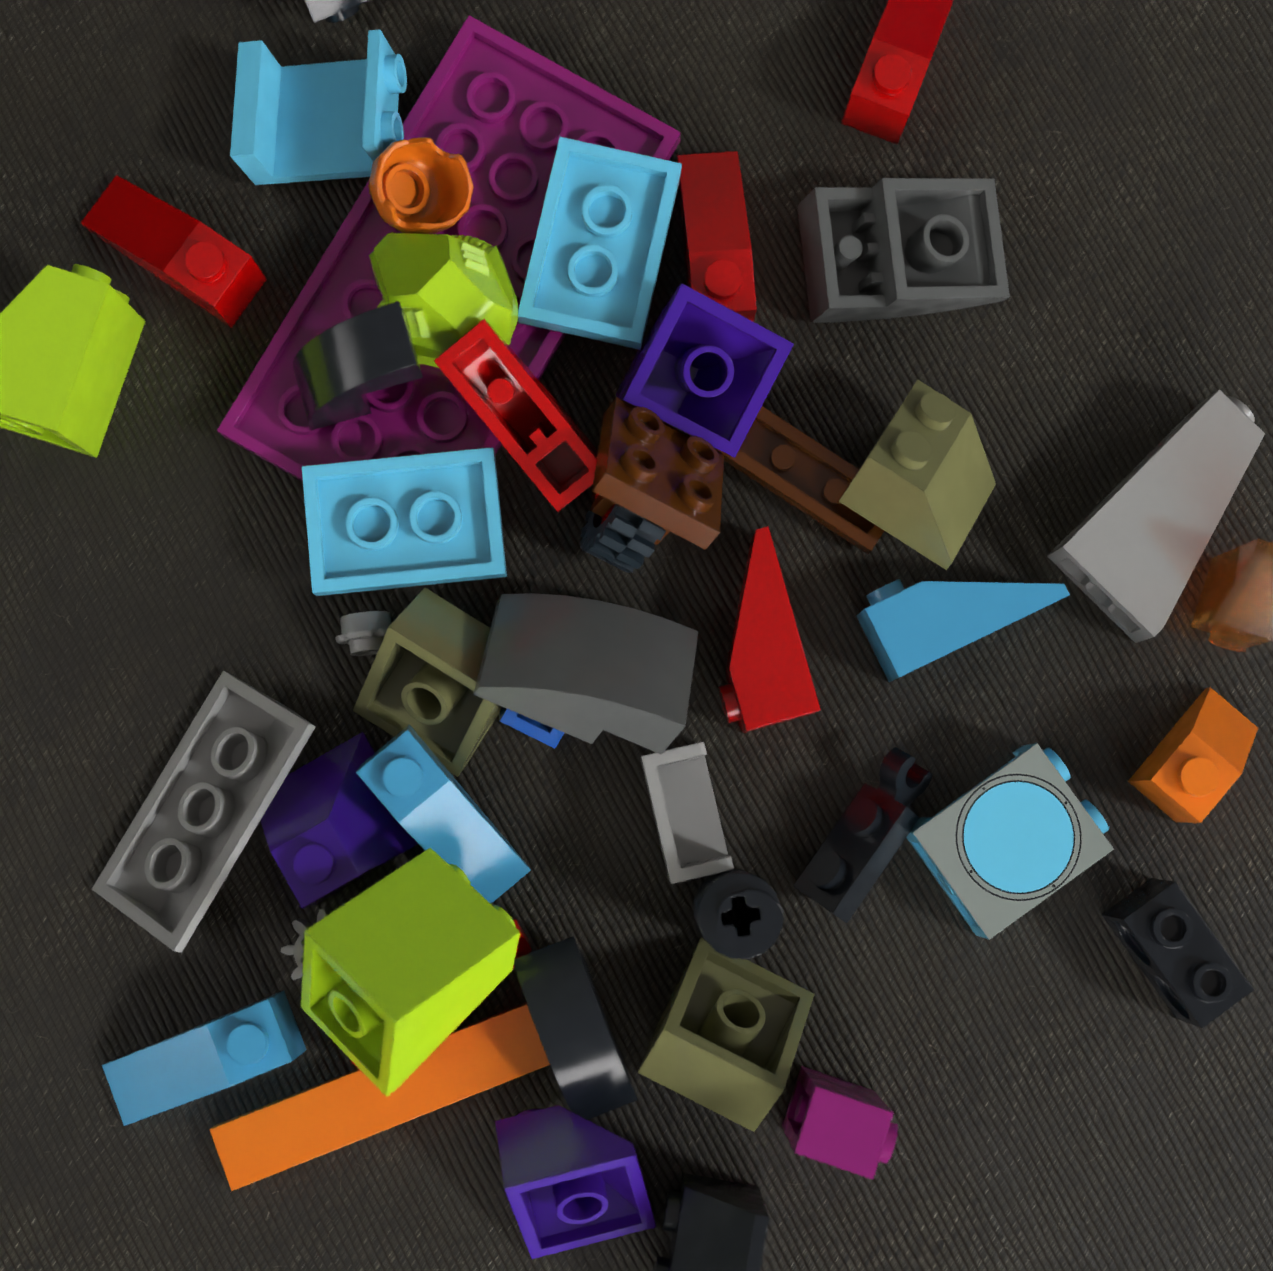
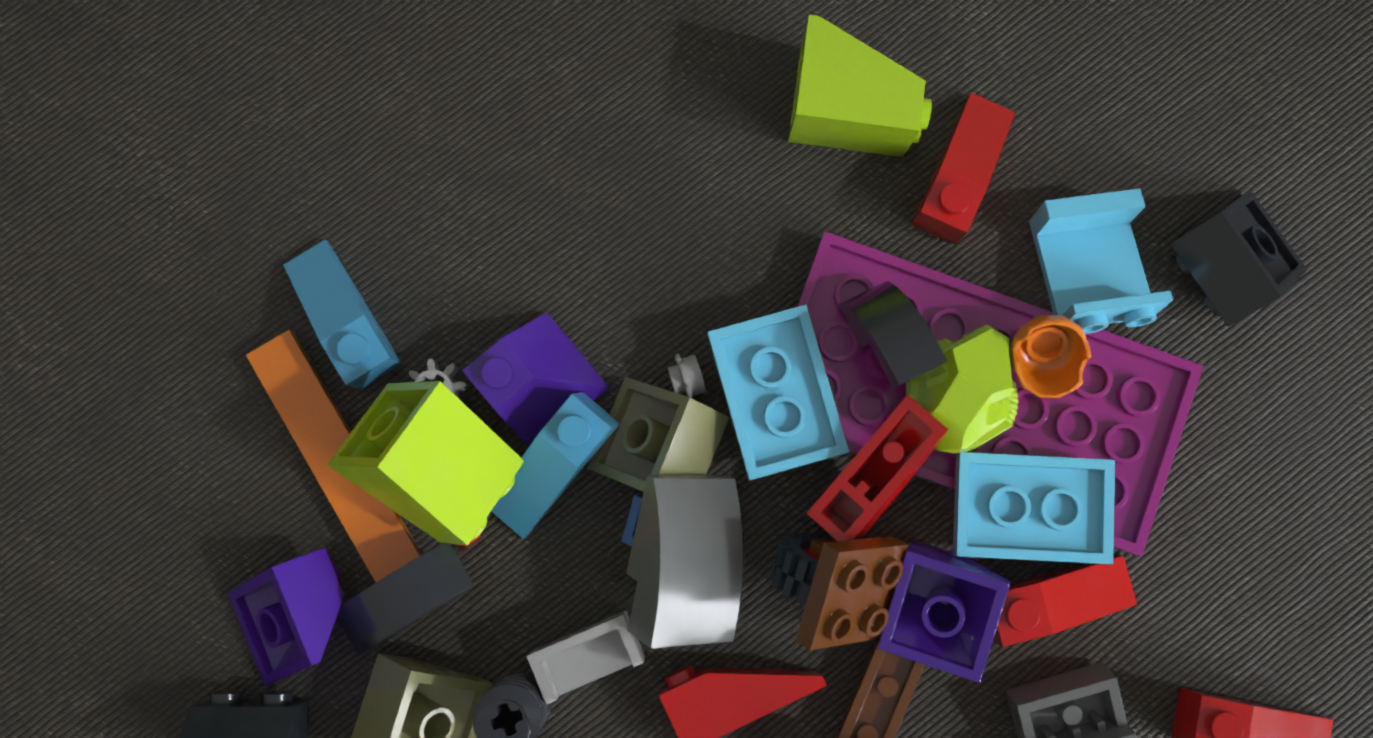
camera: 85 degrees right, 0 degrees up
(203, 810) = (529, 278): light grey slope -> none

